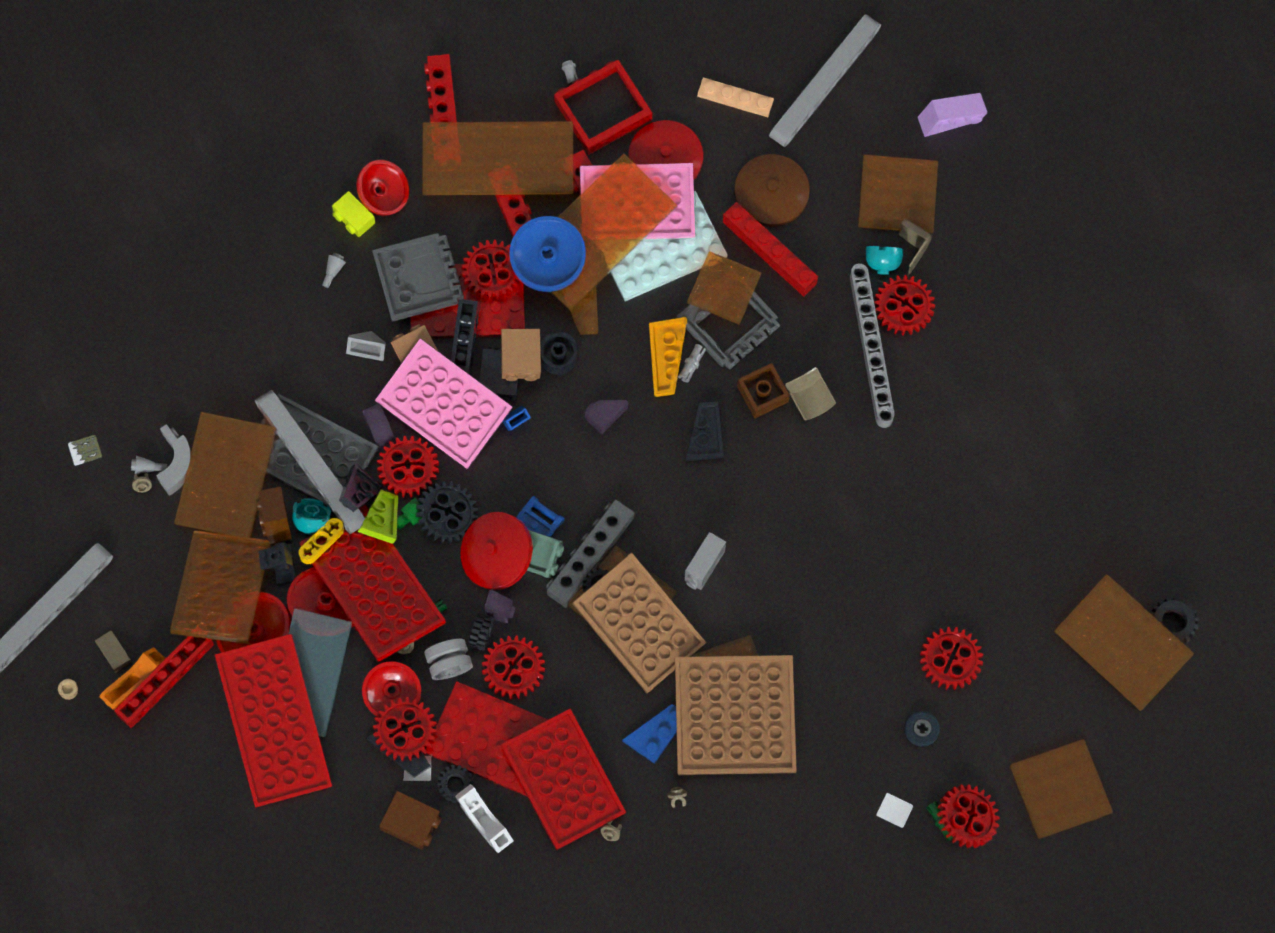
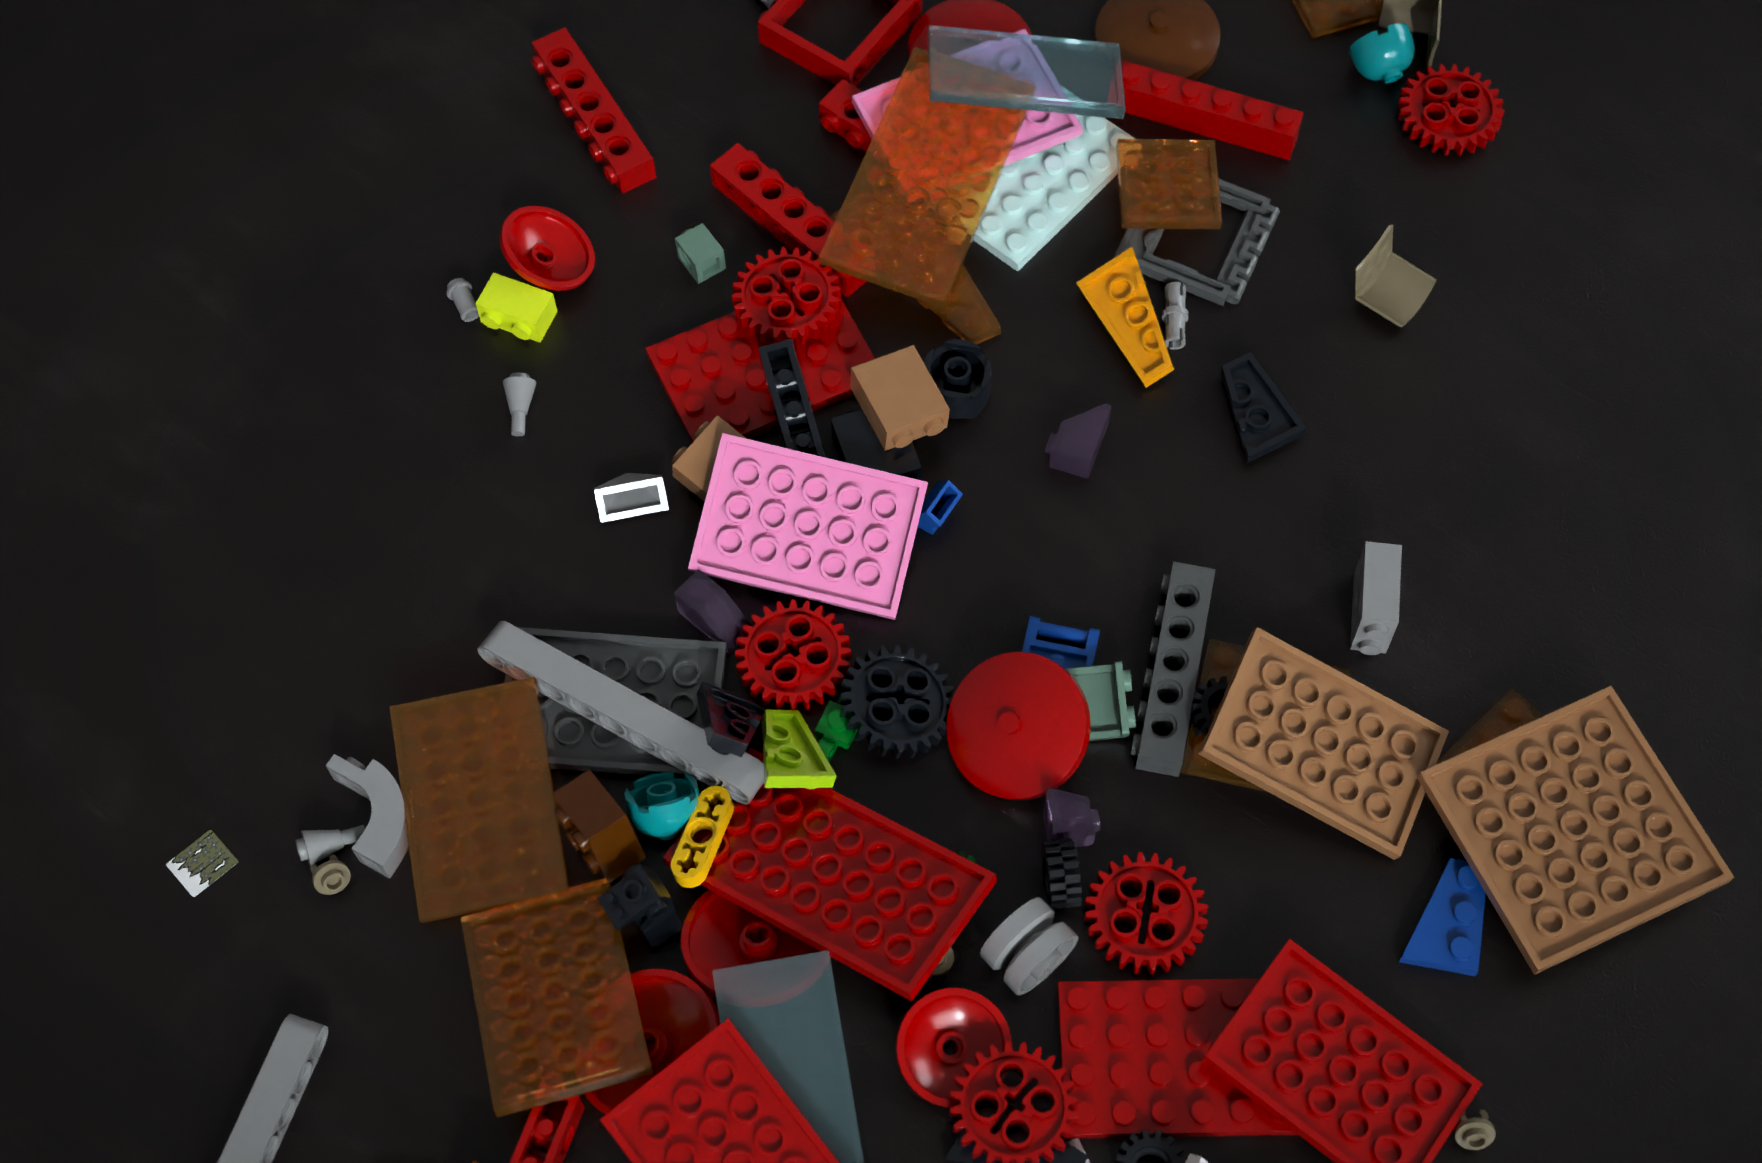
camera: 20 degrees left, 10 degrees down
(328, 196) = (460, 293): none -> light grey pin
(418, 276) = (668, 354): dark grey hinge -> none
(462, 221) = (700, 253): none -> sand green brick
(497, 158) = (713, 137): clear orange plate -> none
(547, 253) = (870, 226): blue dish -> none
(675, 794) = (1550, 1009): dark tan plate -> none
(676, 193) = (1025, 72): none -> clear light blue tile
(763, 390) = (1313, 306): reddish brown brick -> none
(871, 354) = (1439, 184): light grey beam -> none

